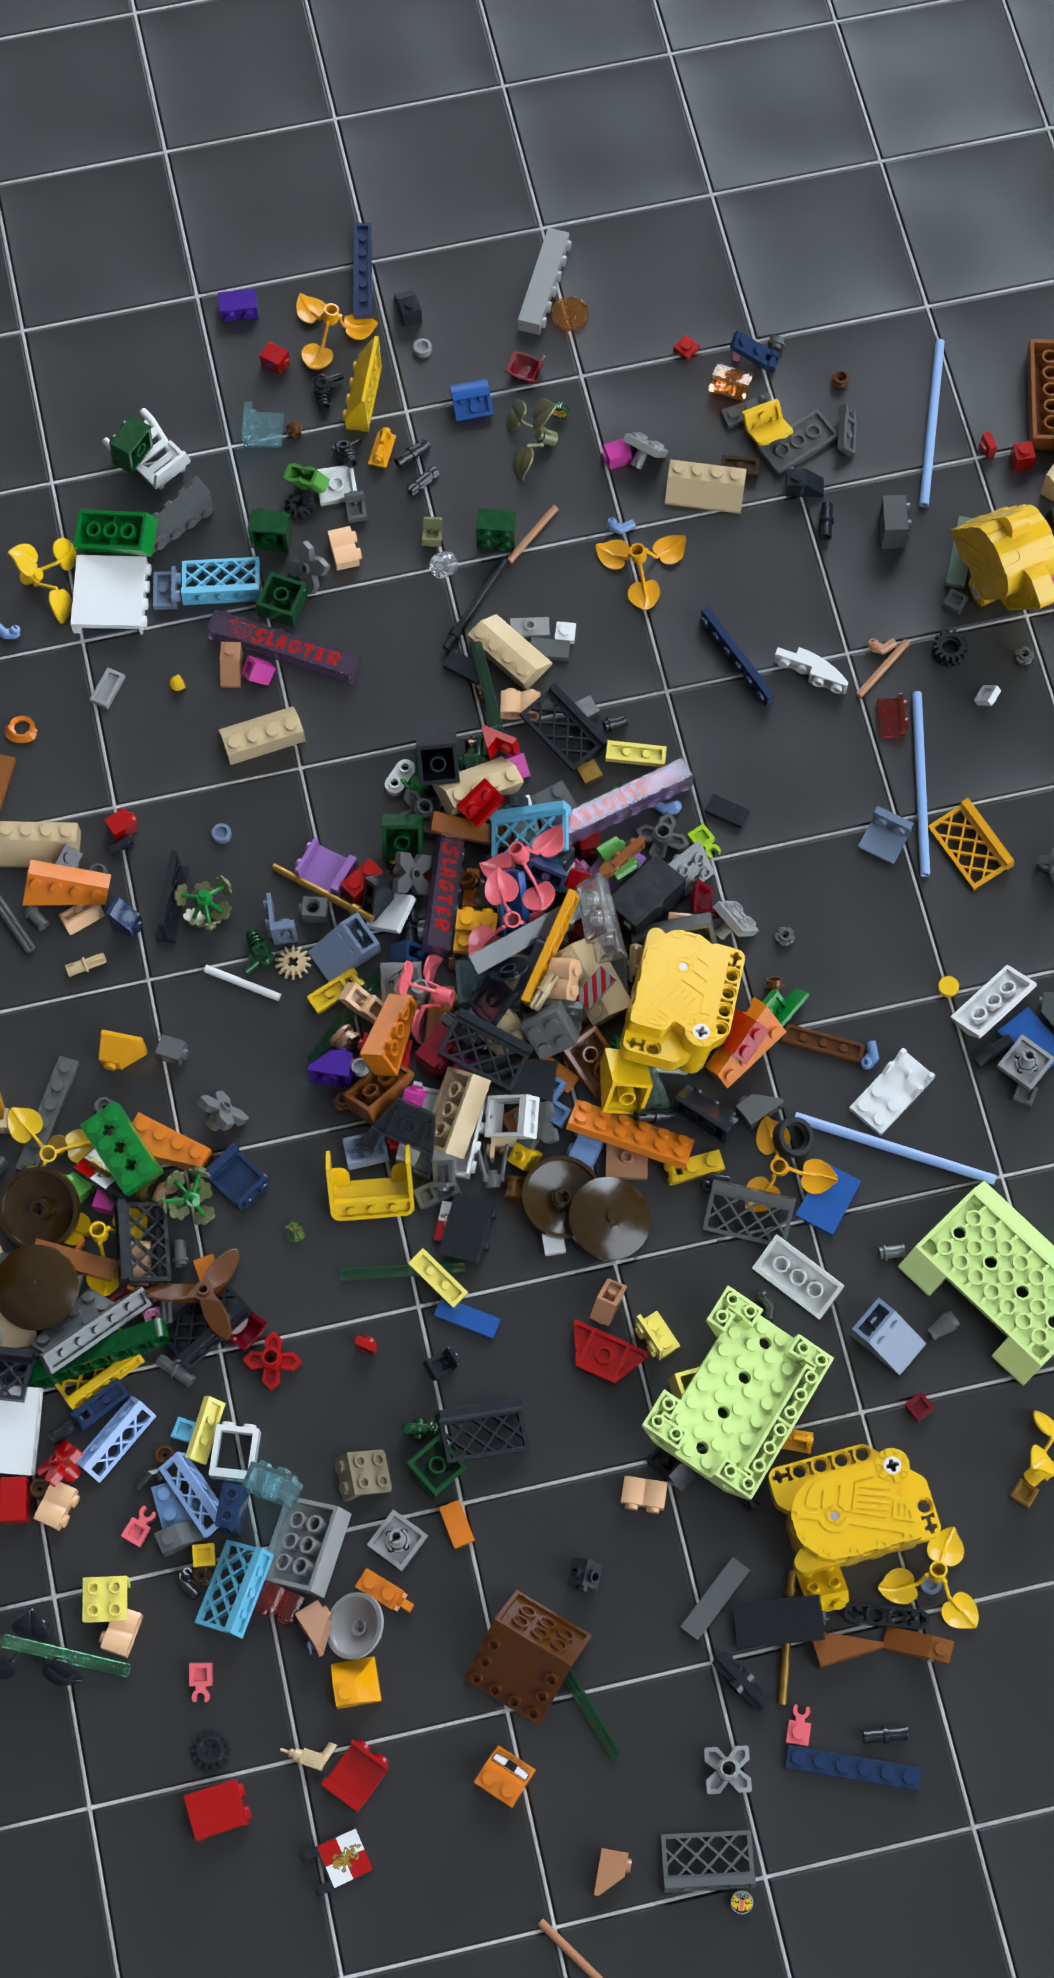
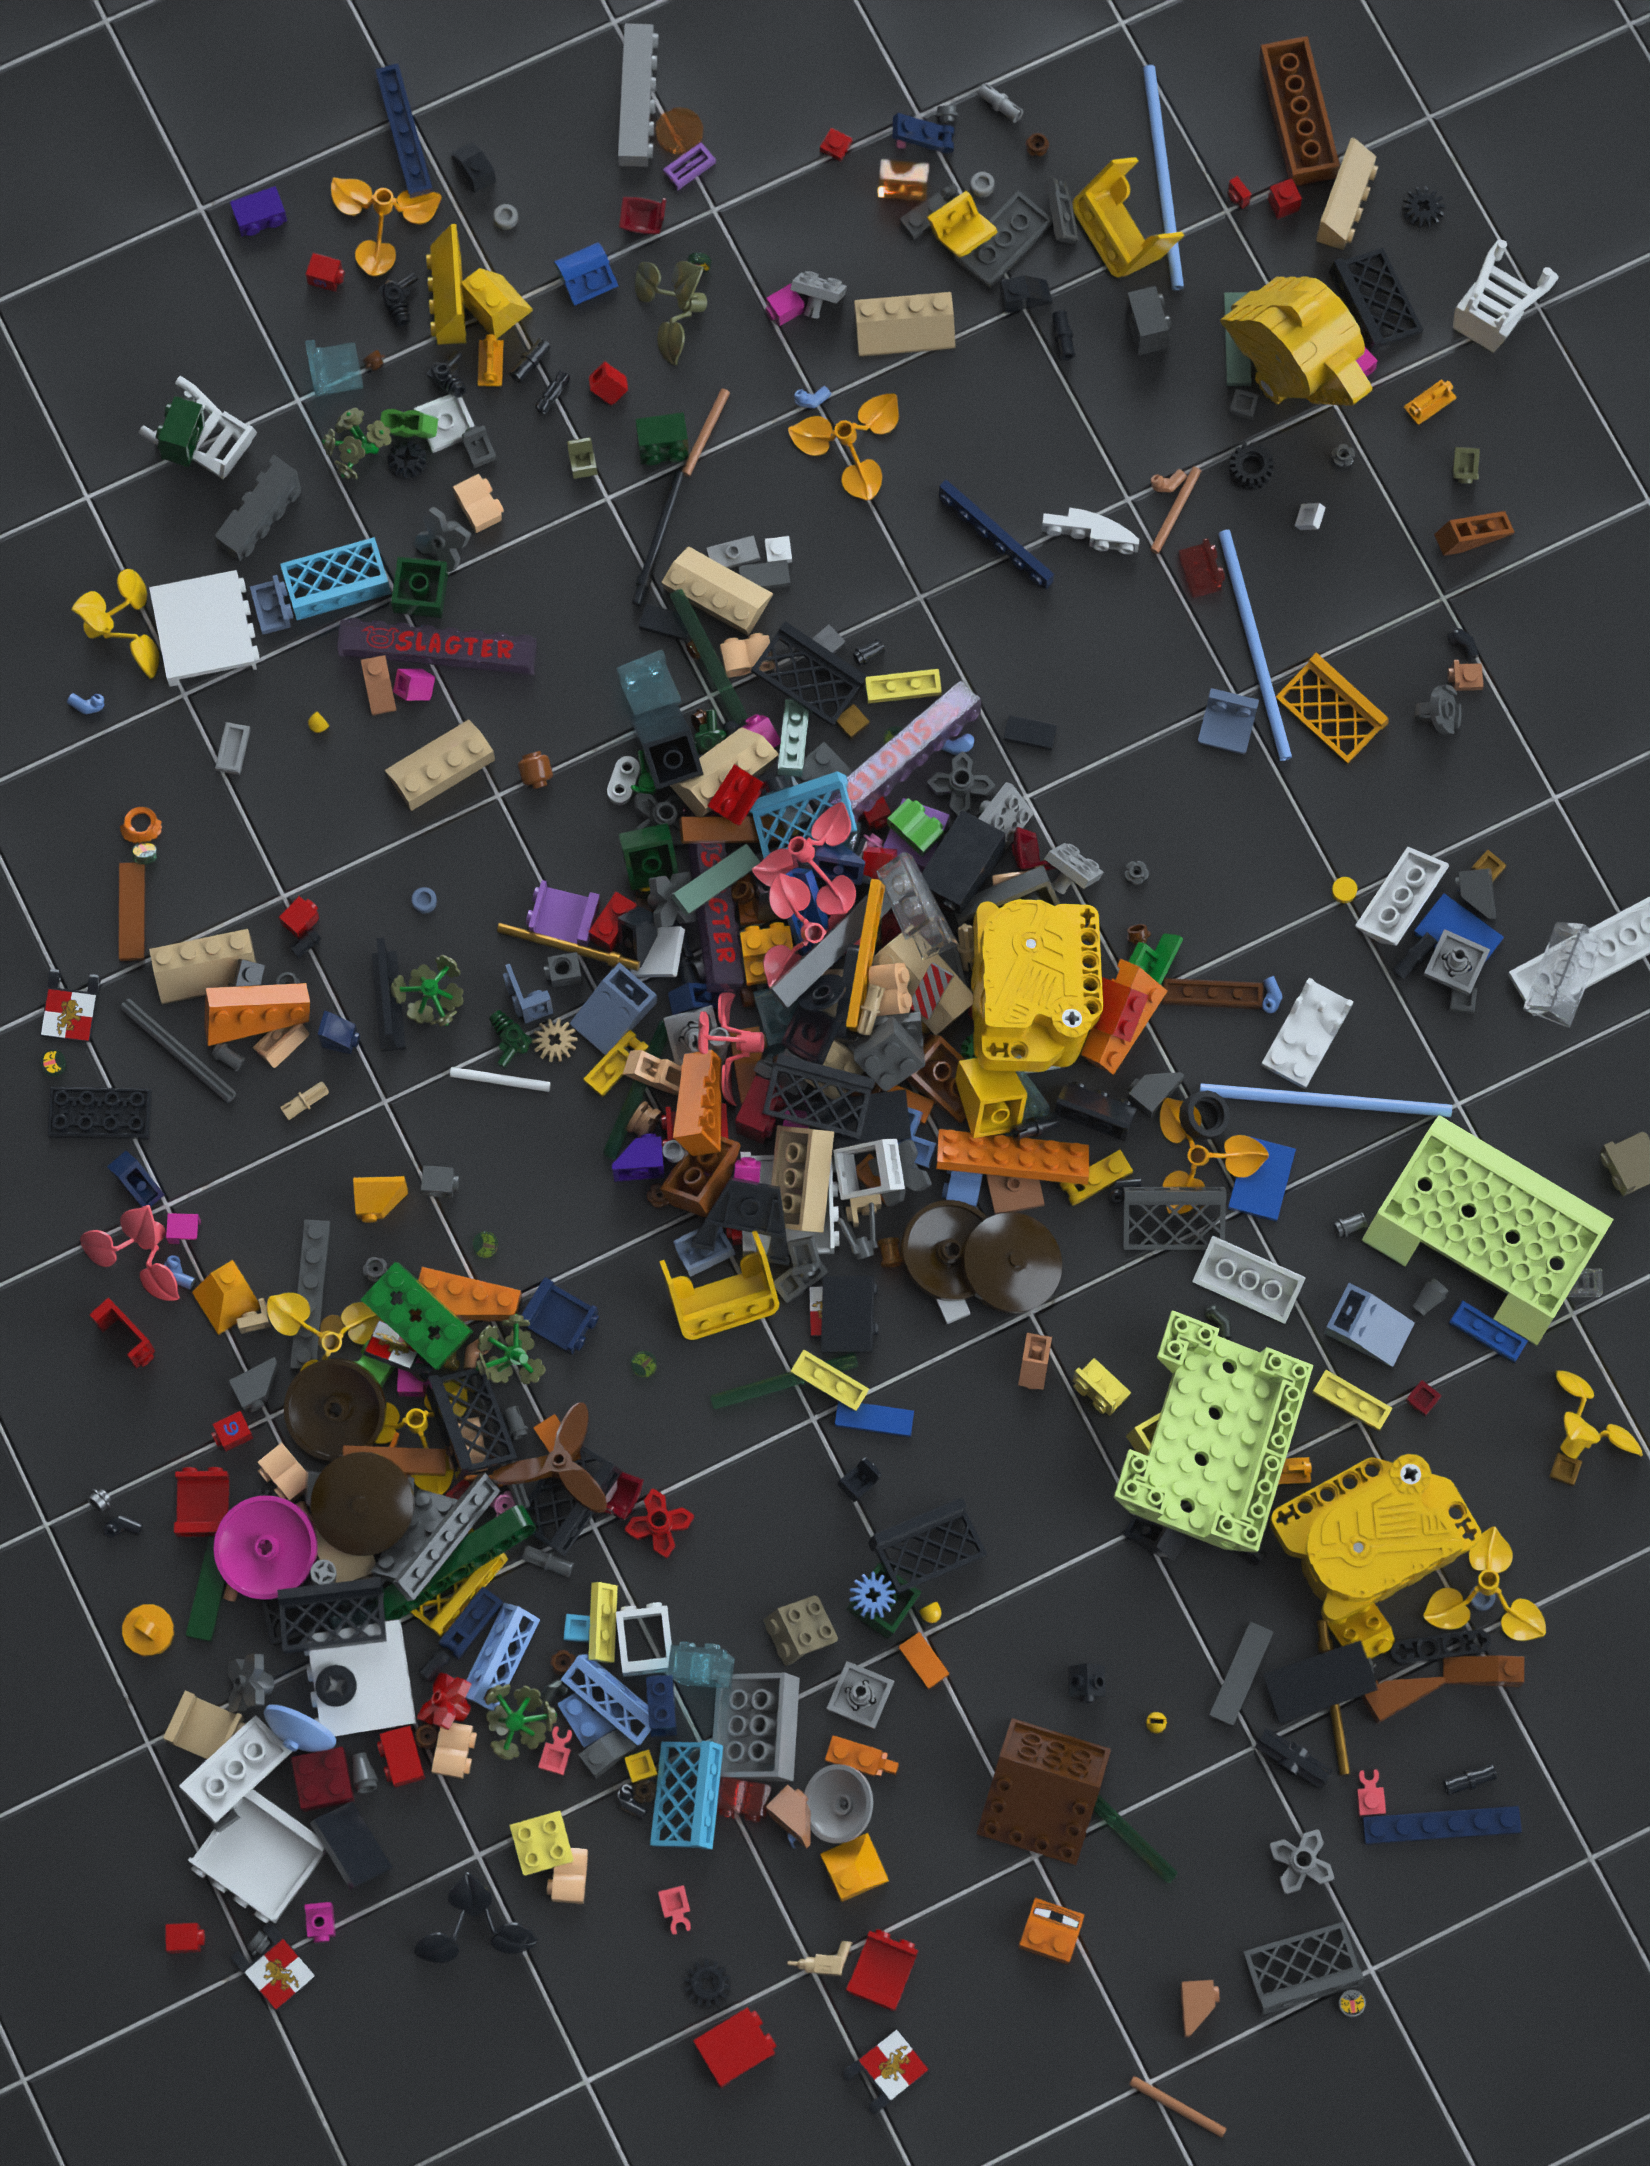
camera: 15 degrees left, 5 degrees up
(17, 750) = (144, 853): none -> tile
(71, 1656) = (524, 1917): clear green axle -> none
(107, 1491) = (504, 1718): none -> olive plant
(115, 532) = (198, 536): green brick -> none
(193, 1109) = (485, 1244): none -> clear green tile
(220, 1112) = (519, 1243): dark grey plant -> none
(261, 486) = (356, 448): none -> olive plant
(270, 530) = (381, 501): dark green brick -> none
(333, 754) = (535, 769): none -> dark orange head
(366, 1344) = (765, 1477): red plate -> none
(395, 404) = (493, 301): none -> yellow slope
(419, 1465) = (867, 1604): none -> medium blue gear
(420, 1428) = (854, 1560): dark green piece -> none
(438, 707) = (648, 683): none -> clear light blue bracket
(443, 564) = (607, 497): clear head -> none
(448, 865) = (715, 880): none -> sand green tile
(467, 482) = (608, 383): none -> red panel
(472, 1486) = (931, 1612): none -> yellow hinge
(498, 740) = (731, 709): red slope -> none
(524, 1157) = (894, 1213): yellow bracket -> none
(538, 773) = (793, 739): none -> tile
(573, 342) = (695, 172): none -> medium lavender tile
(605, 1354) = (1045, 1423): red wing -> none
(620, 859) = (921, 826): dark orange hinge -> none
(633, 1626) = (1156, 1727): none -> yellow hinge
(644, 1493) = (1131, 1574): light nougat brick -> none
(704, 837) = (1012, 773): lime plate -> none
(748, 463) = (942, 283): dark brown plate -> none
(791, 399) = (982, 184): none -> light grey tile
(819, 342) = (1000, 102): none -> light grey pin
(860, 1394) = (1352, 1400): none -> light yellow plate
(882, 448) = (1110, 225): none -> yellow windscreen
(985, 1365) = (1488, 1332): none -> blue tile

